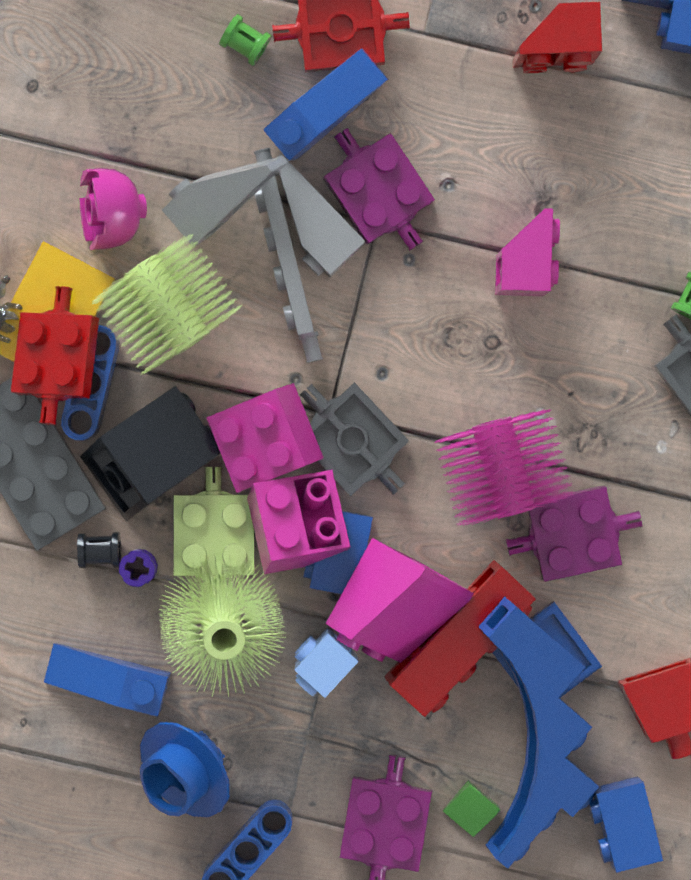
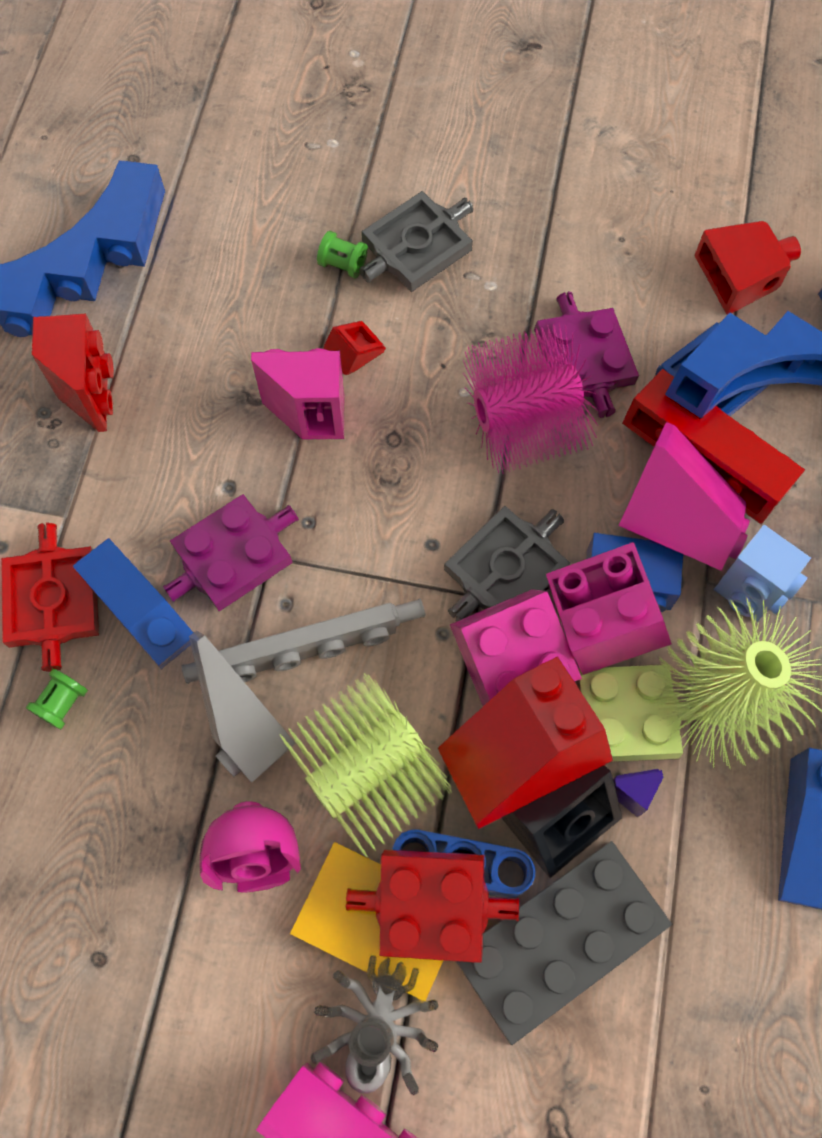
camera: 90 degrees left, 20 degrees down
(99, 550) = (662, 844): black bush -> none
(145, 533) = (637, 789): none -> dark purple slope
(149, 562) = (690, 787): dark purple bush -> none
(175, 436) = (525, 743): none -> red slope
(319, 226) = (277, 603): light grey slope -> none
(593, 306) = (356, 345): none -> red slope

